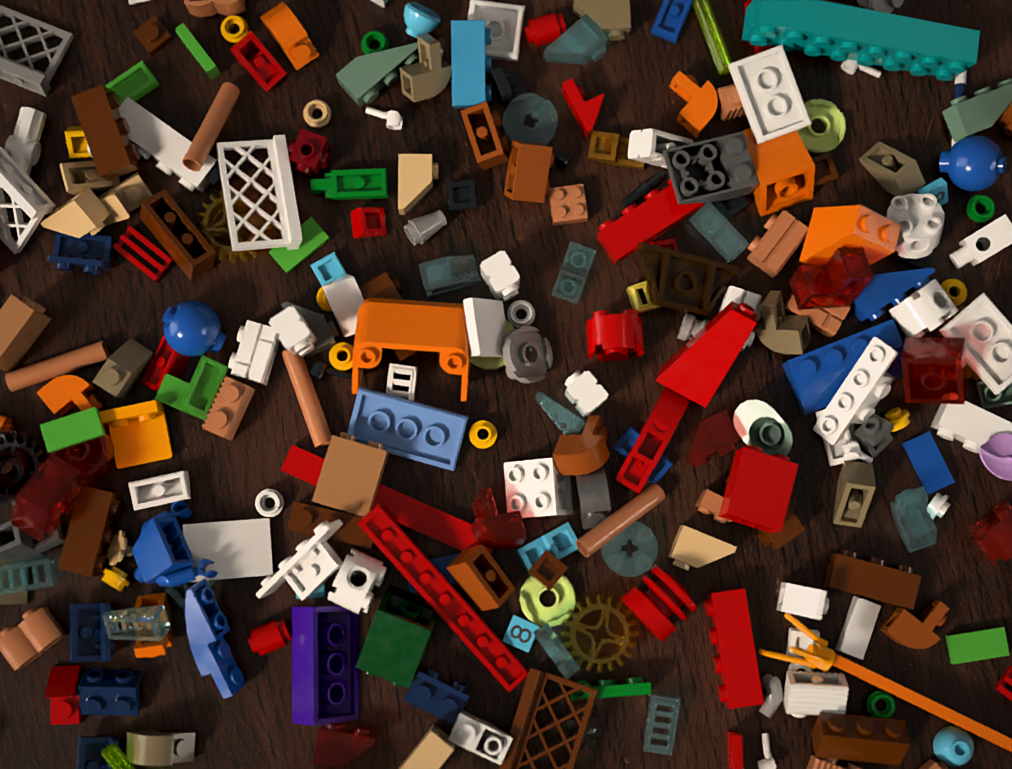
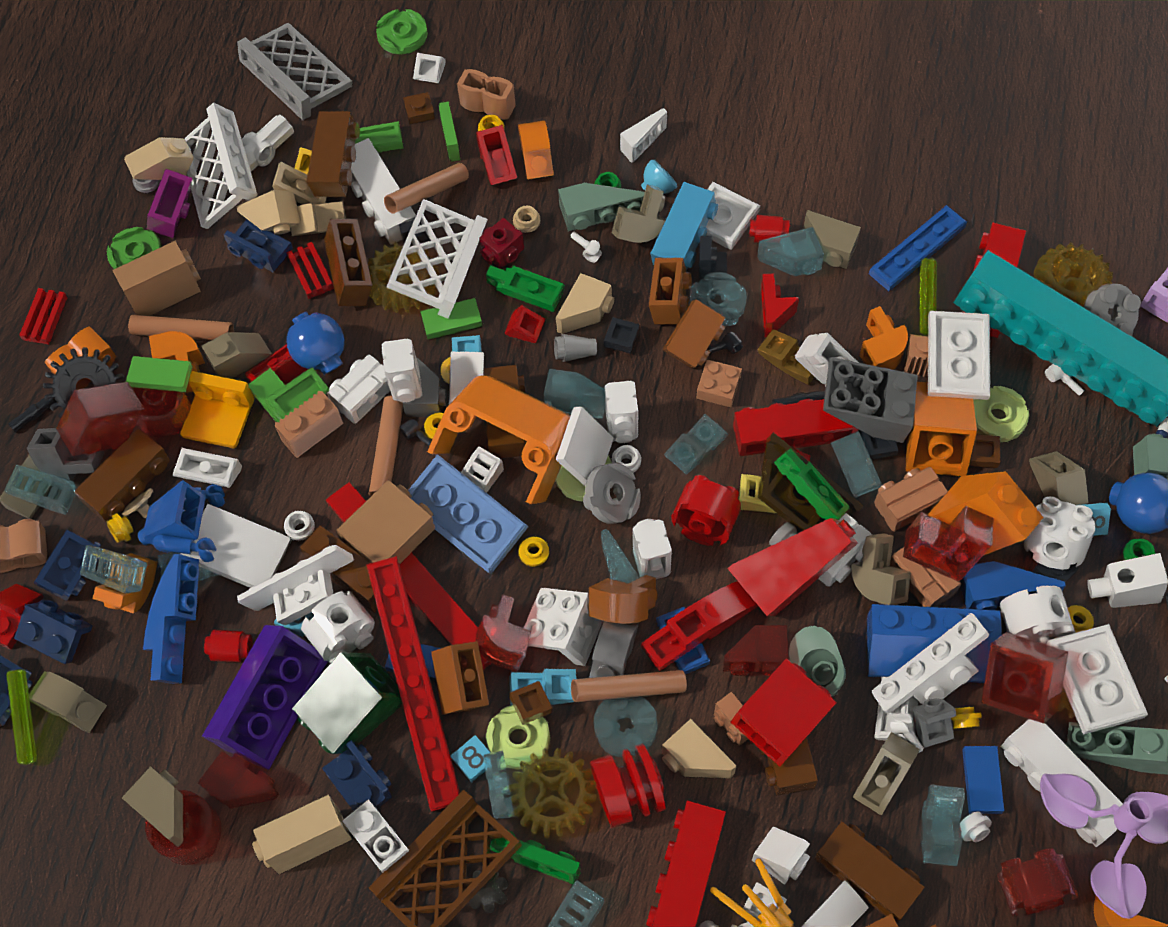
camera: 30 degrees right, 20 degrees down
(696, 277) = (812, 486): none -> green hinge

